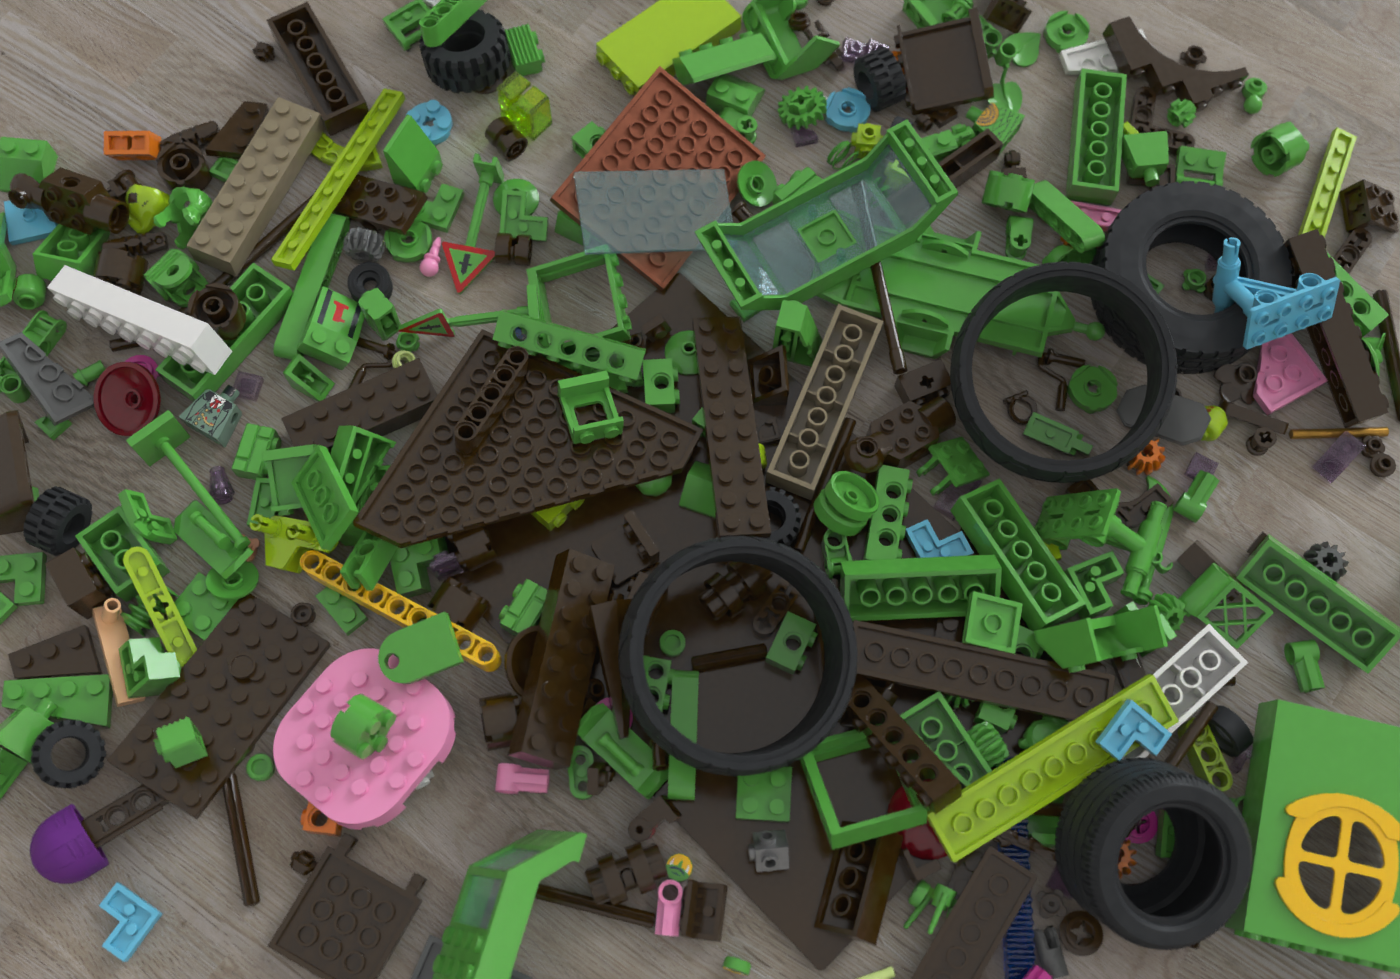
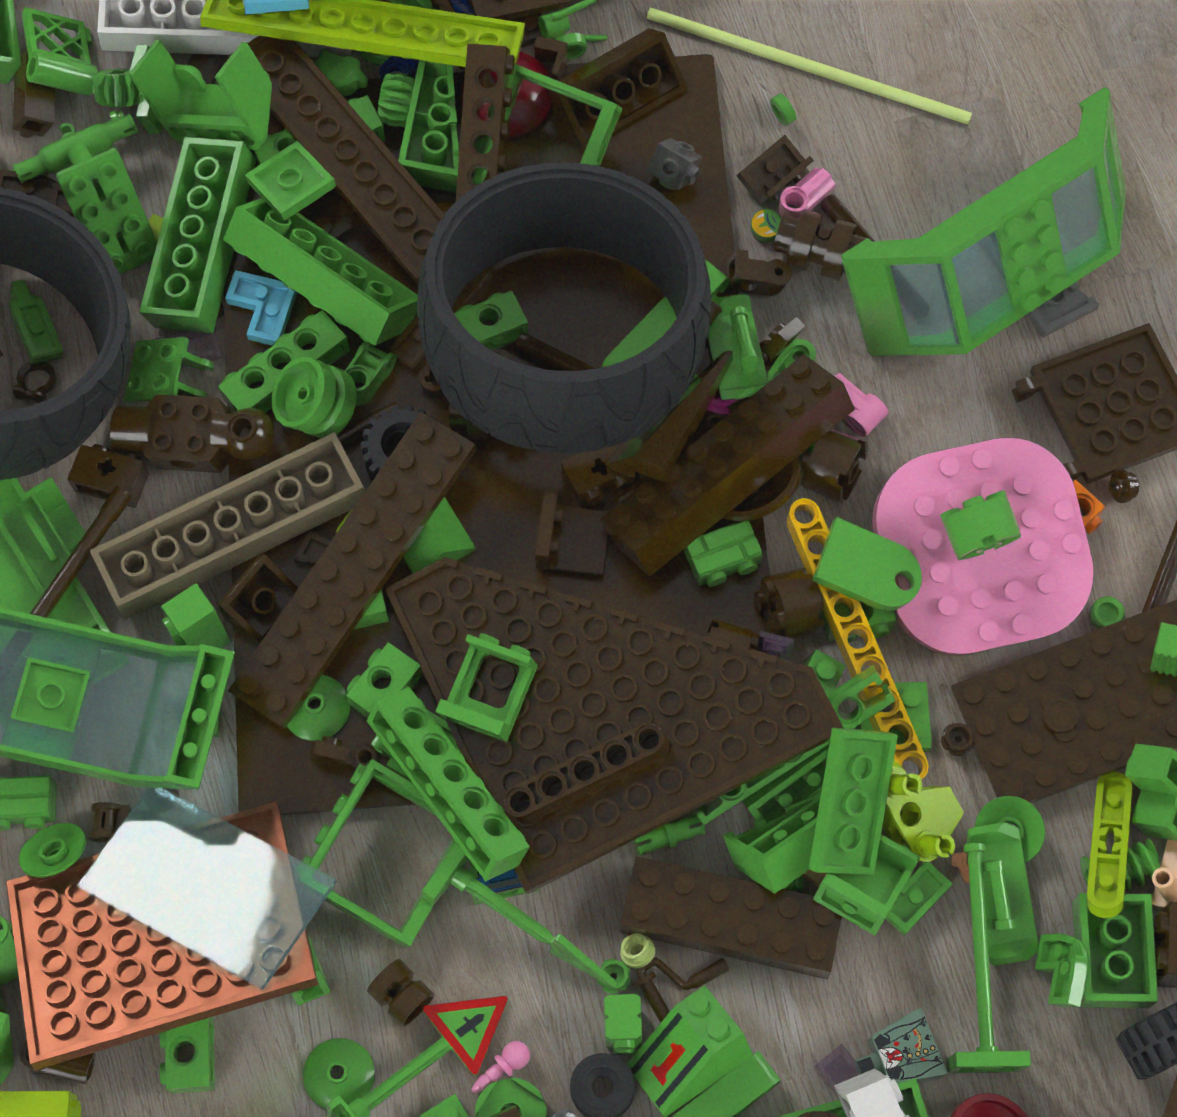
camera: 135 degrees left, 0 degrees up
(200, 608) = (1067, 831): bright green plate -> none
(220, 486) = (952, 959): cone -> none
(248, 459) = (885, 966): bright green brick -> none
(307, 378) = (763, 1012): bright green slope -> none
(516, 221) = (368, 1028): bright green plate -> none
(1090, 580) = (154, 166): bright green brick -> none

